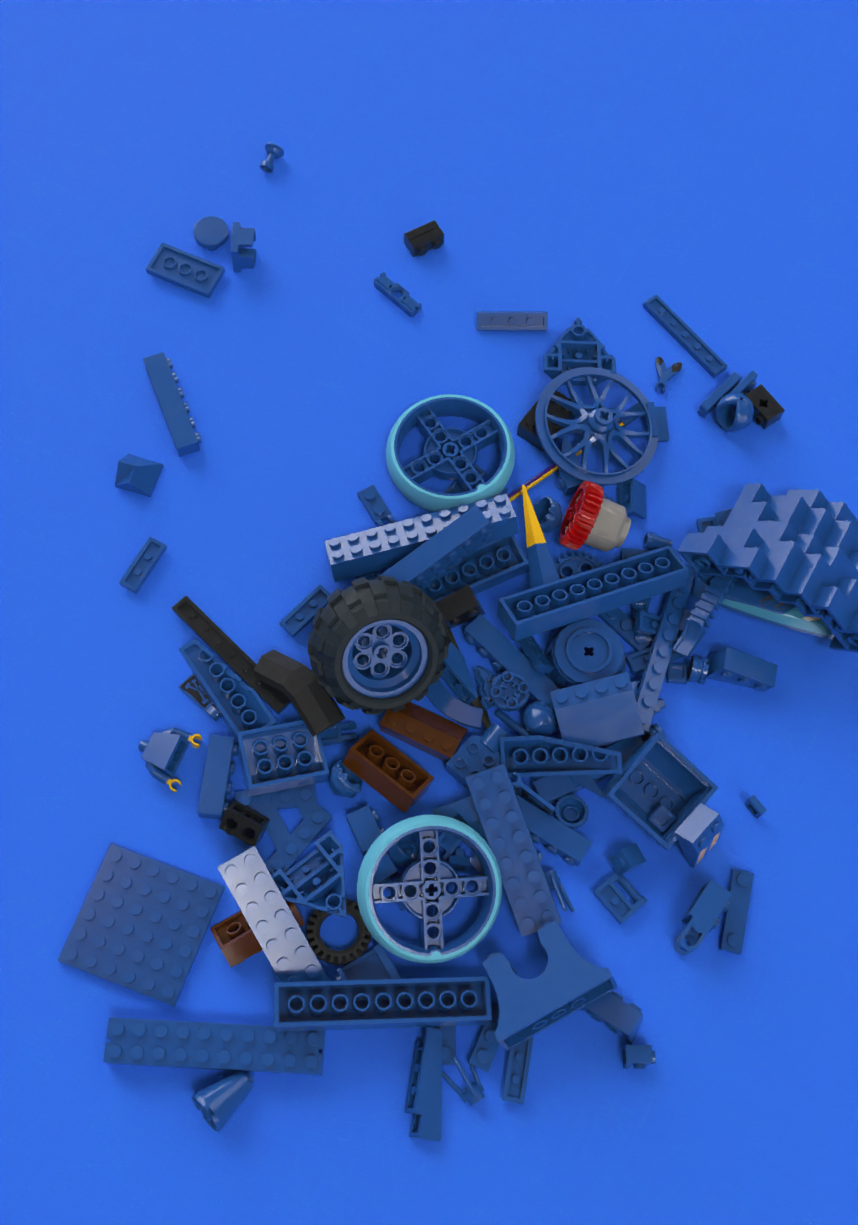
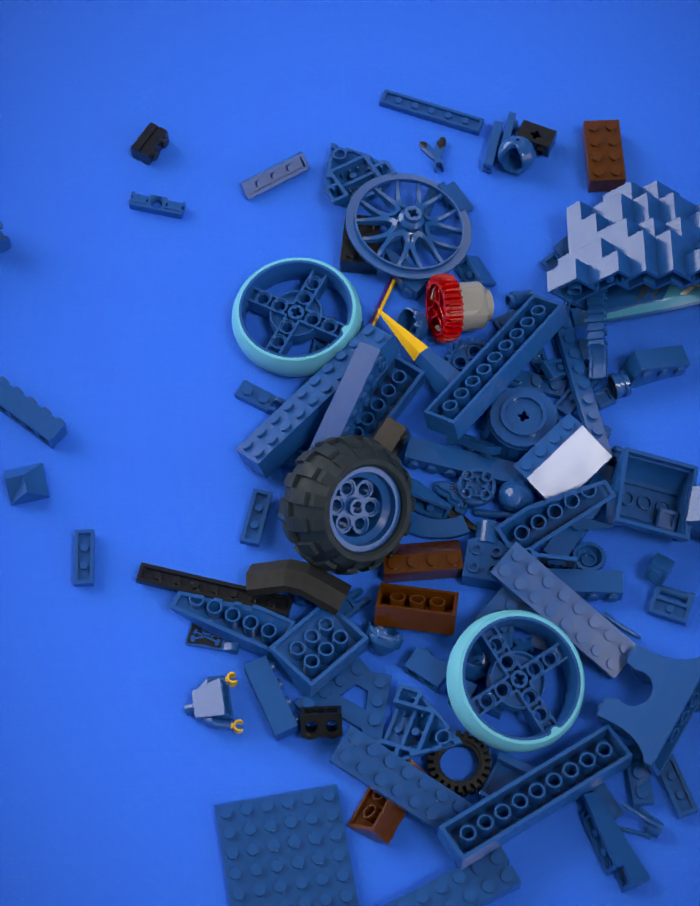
camera: 25 degrees left, 5 degrees down
(814, 453) = (603, 155): none -> reddish brown brick

